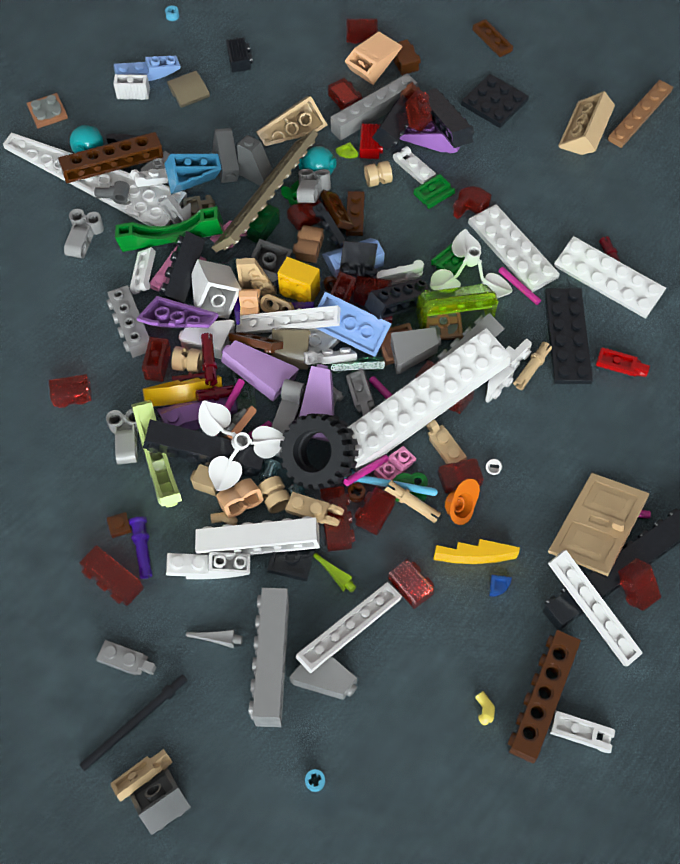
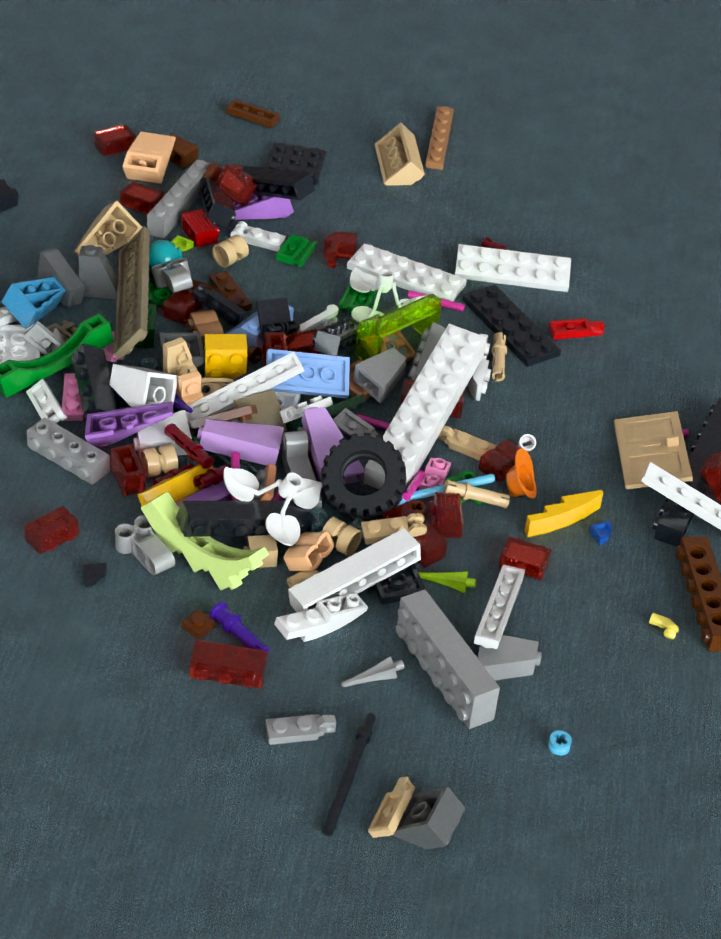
camera: 35 degrees left, 20 degrees down
(76, 442) = (94, 573): none -> black tile

